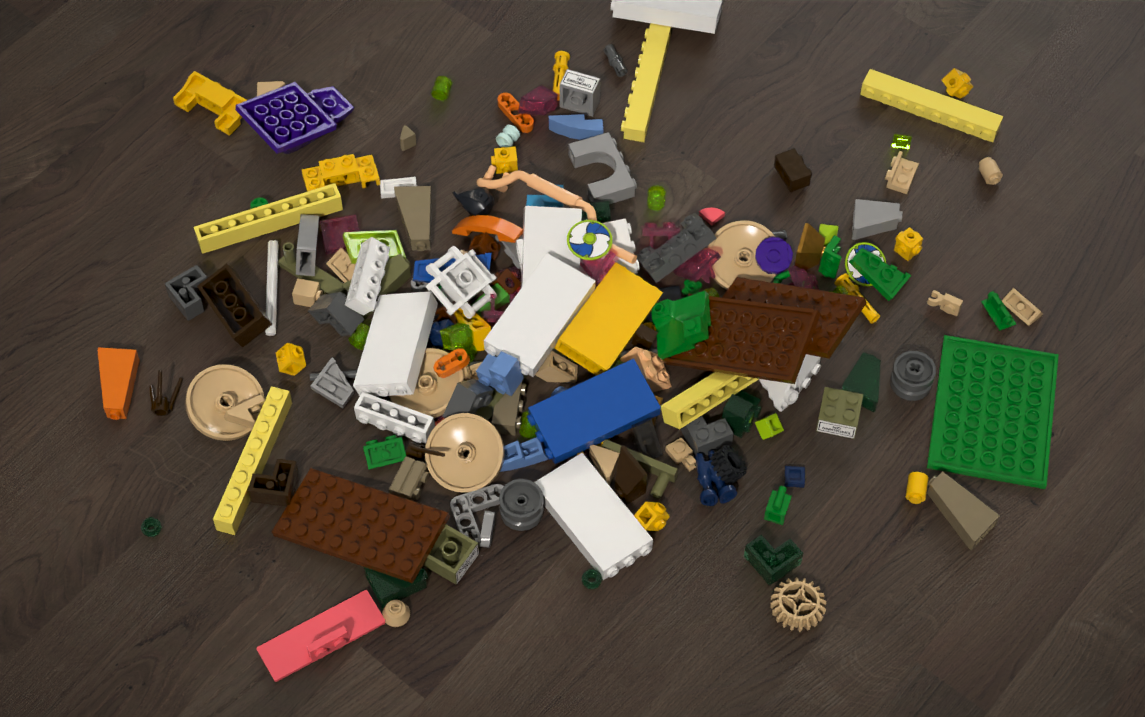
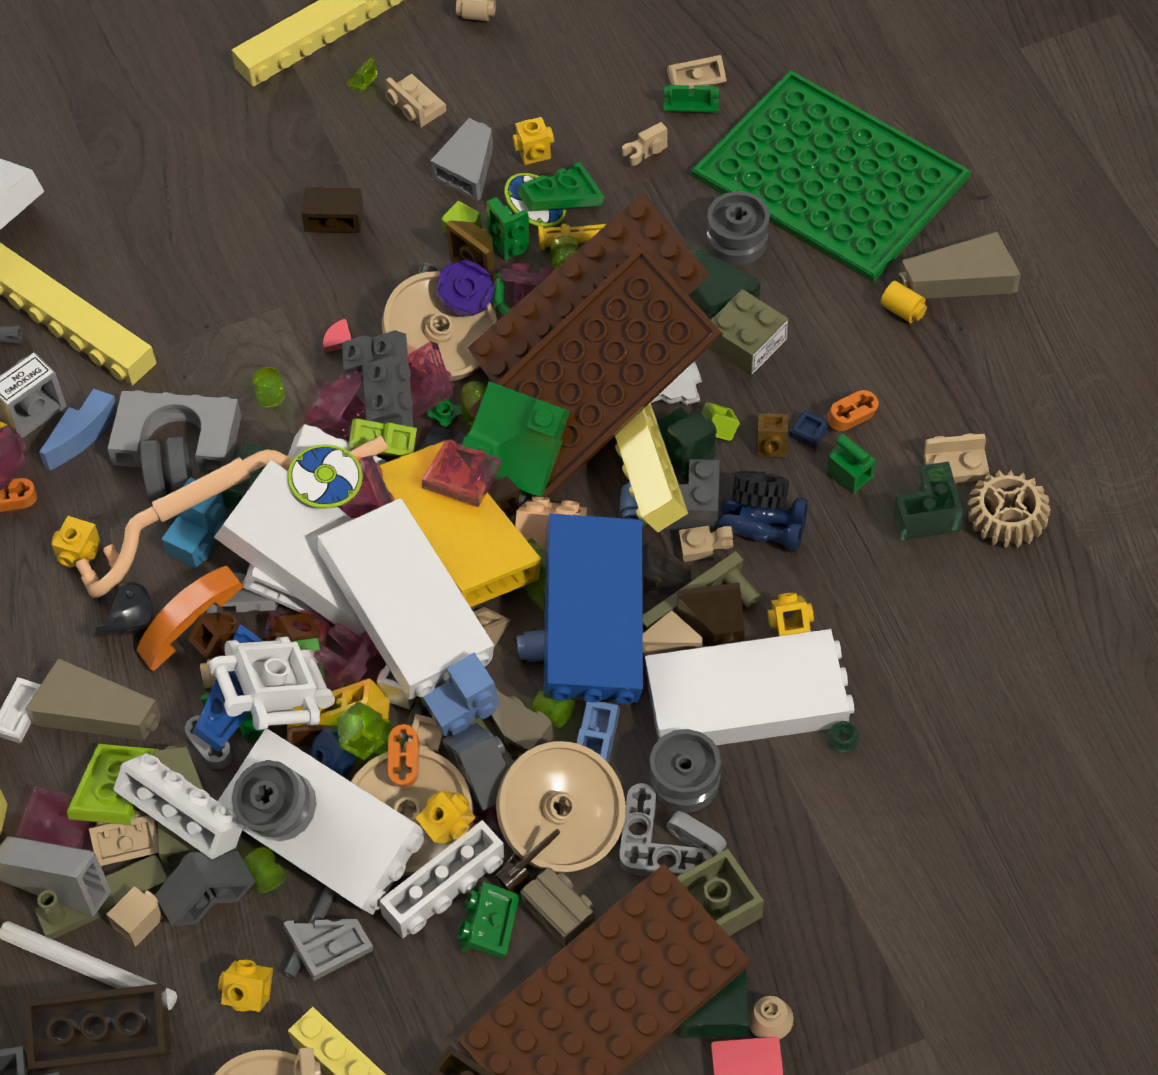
camera: 60 degrees left, 0 degrees up
(388, 314) = (273, 800): none -> dark grey wheel
(423, 398) = (446, 817): none -> yellow brick
(509, 135) = (32, 523): light aqua wheel -> none
(571, 173) = (163, 471): none -> dark grey wheel
(639, 306) = (461, 473): none -> clear pink plate
(645, 261) = (397, 437): none -> lime slope
(776, 456) = (772, 435): none -> pearl gold bracket
(819, 563) = (964, 453): none -> tan bracket
(822, 489) = (855, 415): none -> orange beam

